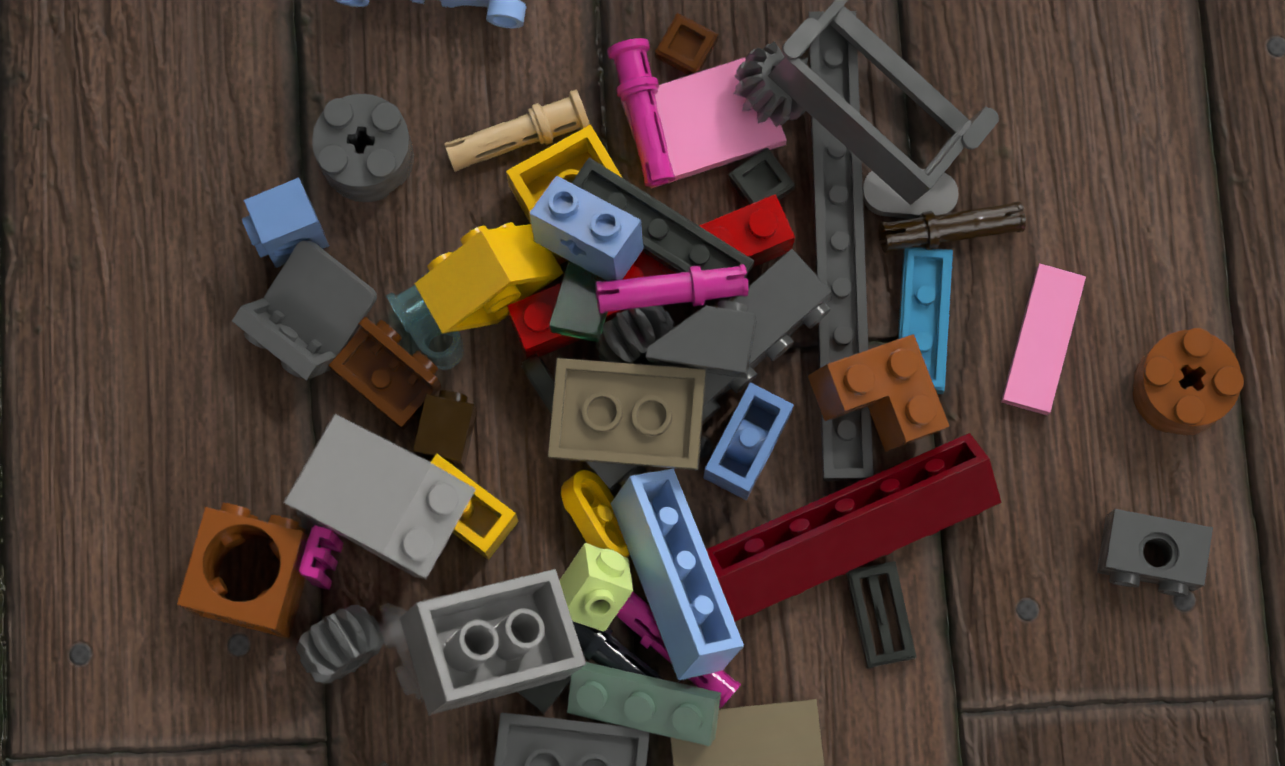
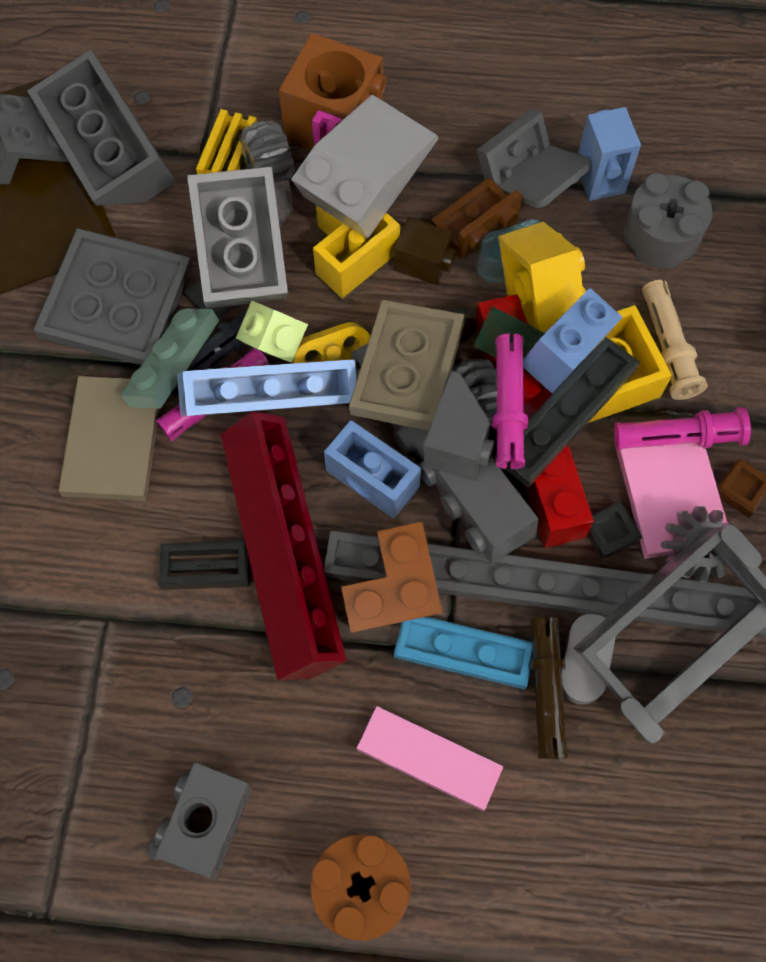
camera: 100 degrees right, 10 degrees down
(274, 703) = (234, 123): none -> yellow tile

